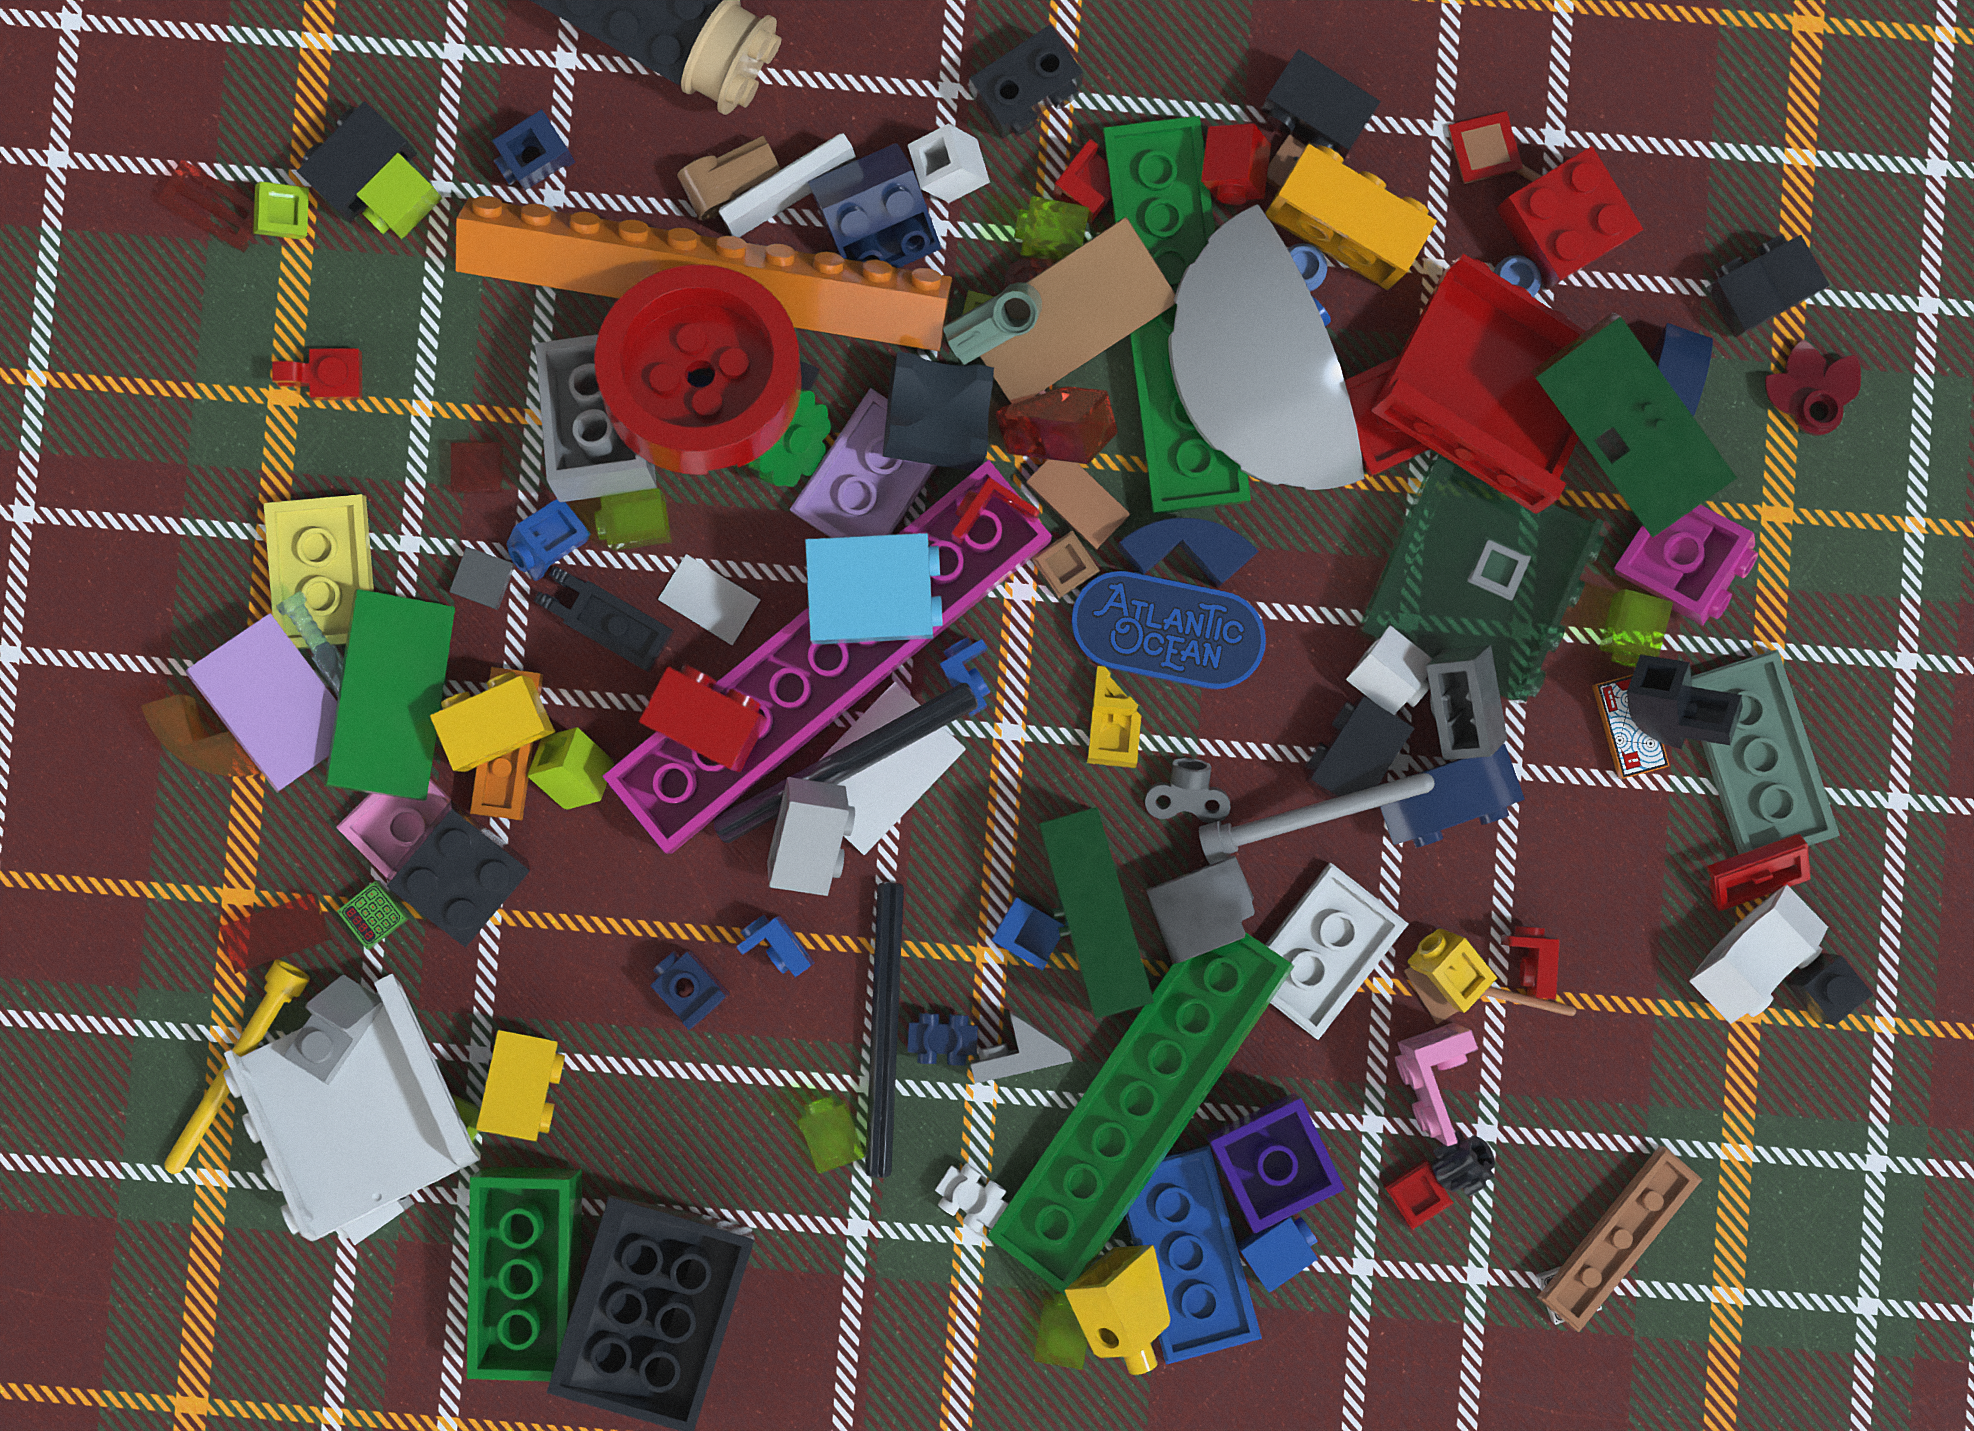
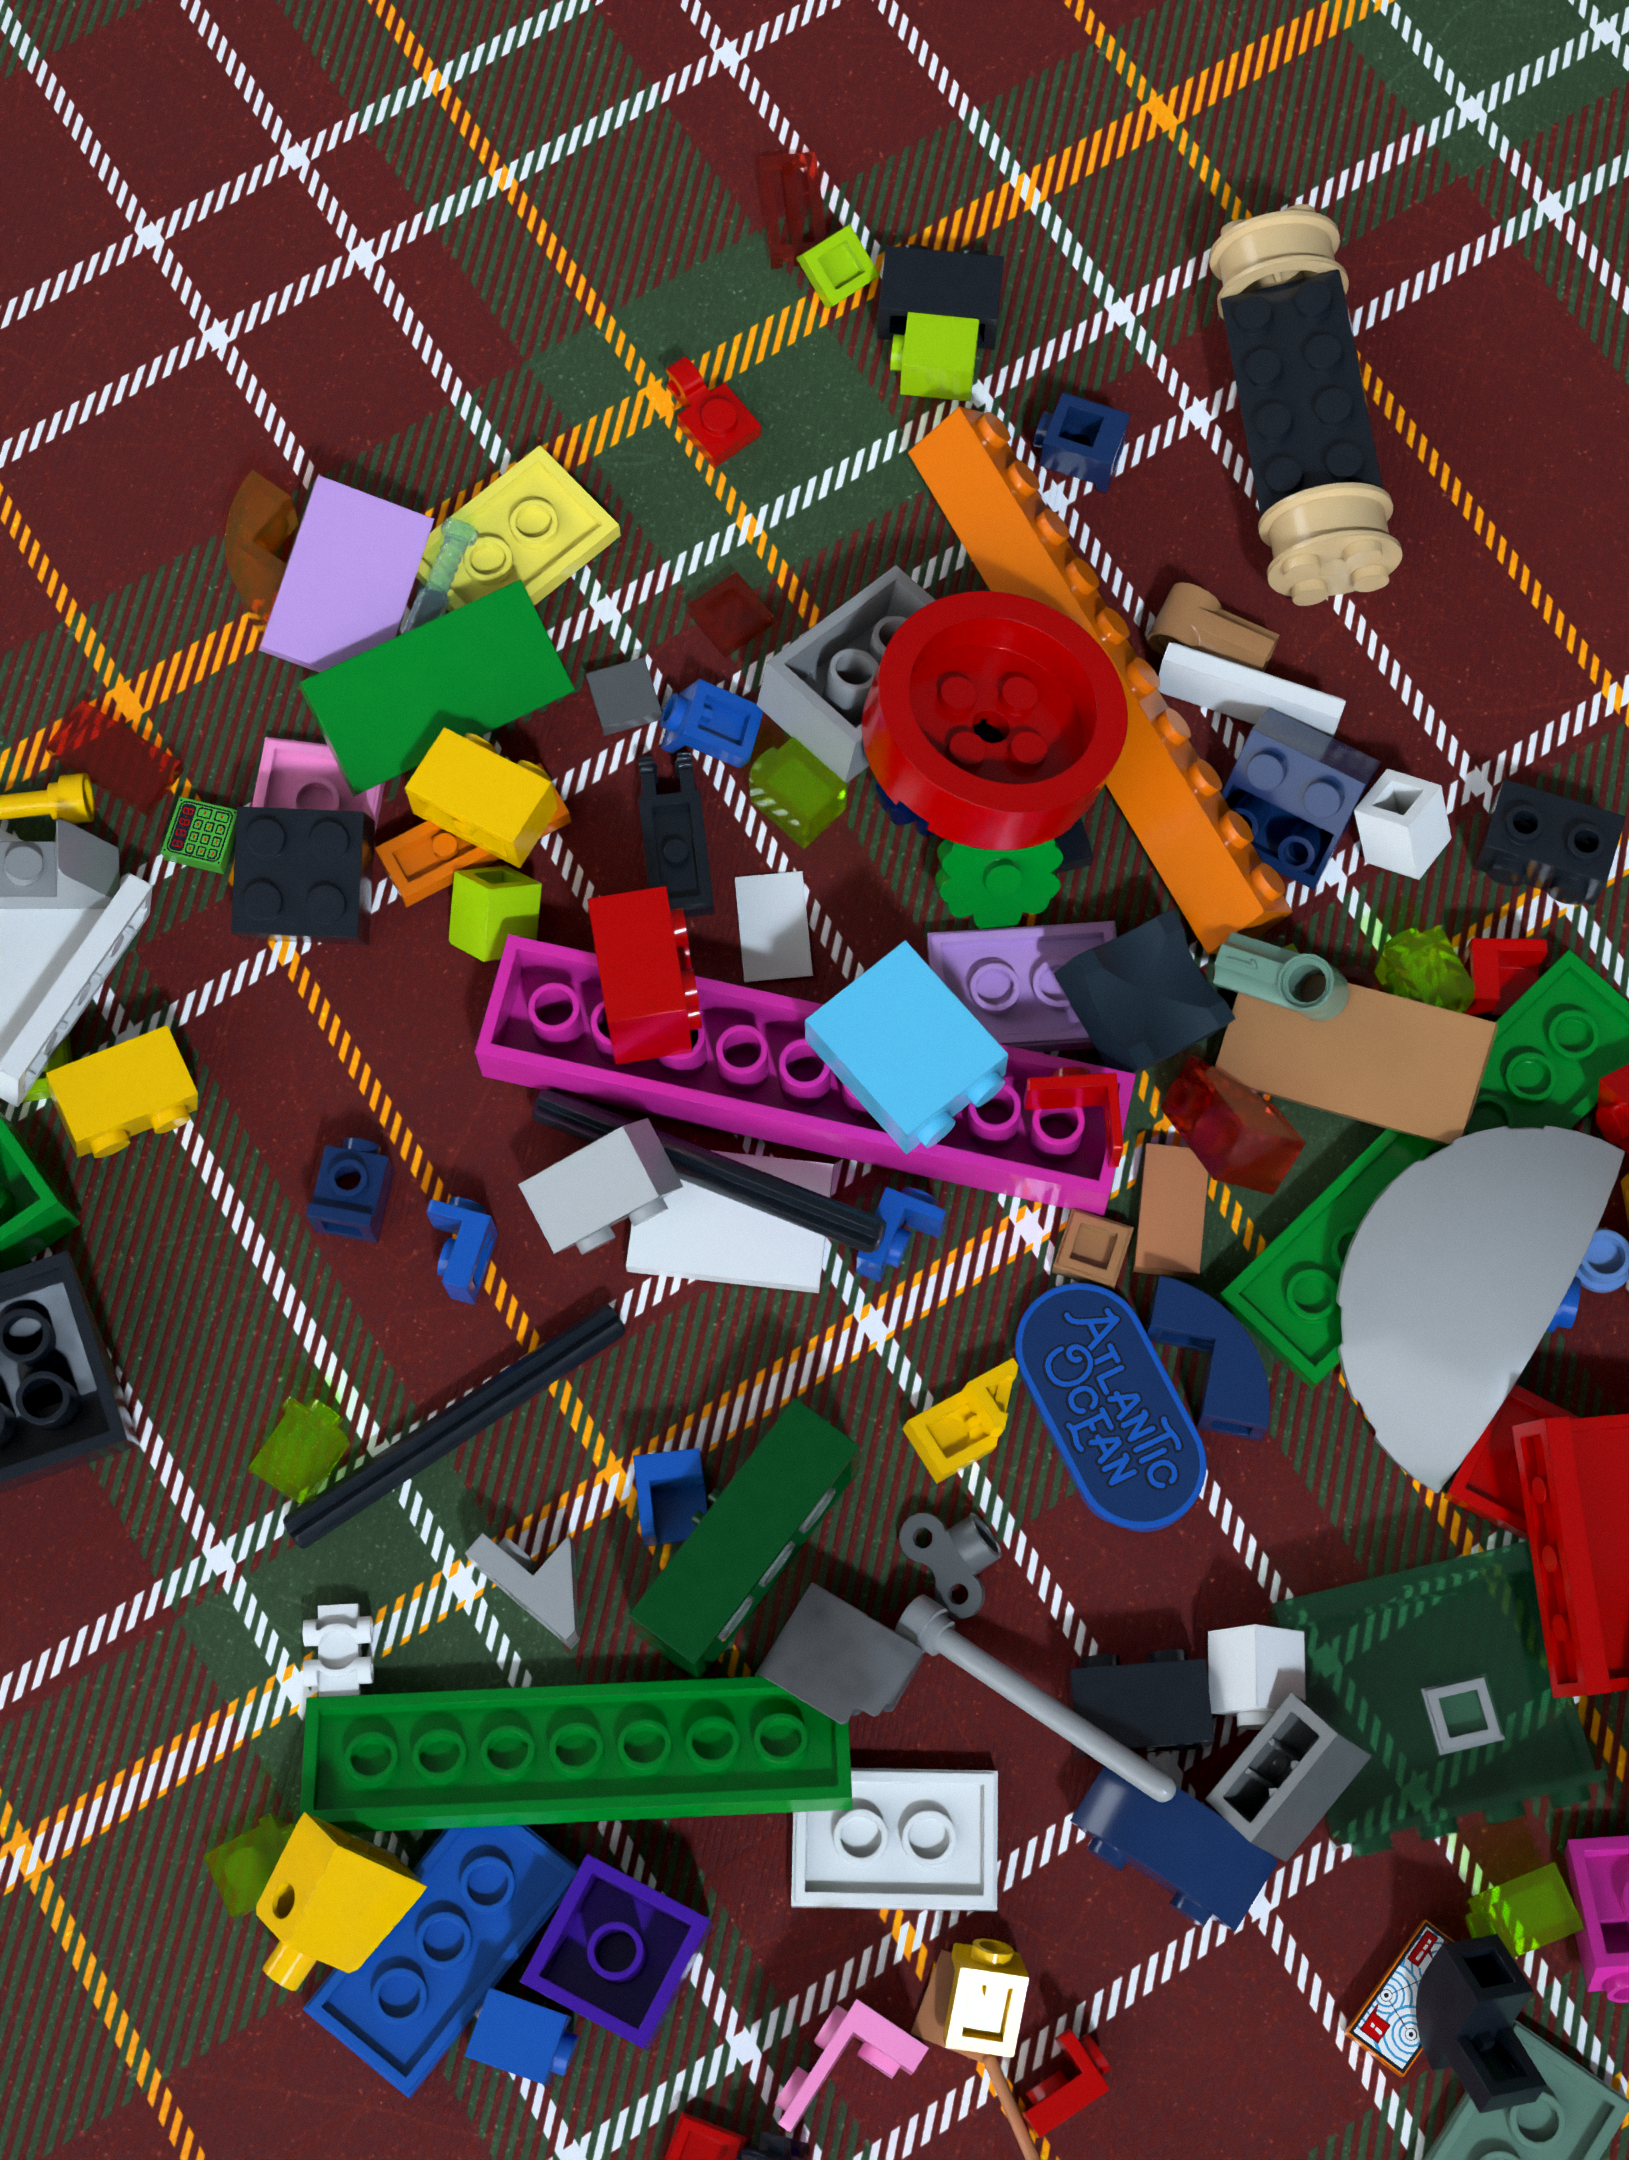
camera: 60 degrees right, 15 degrees down
(933, 1038) = (497, 1504): dark blue piece -> none

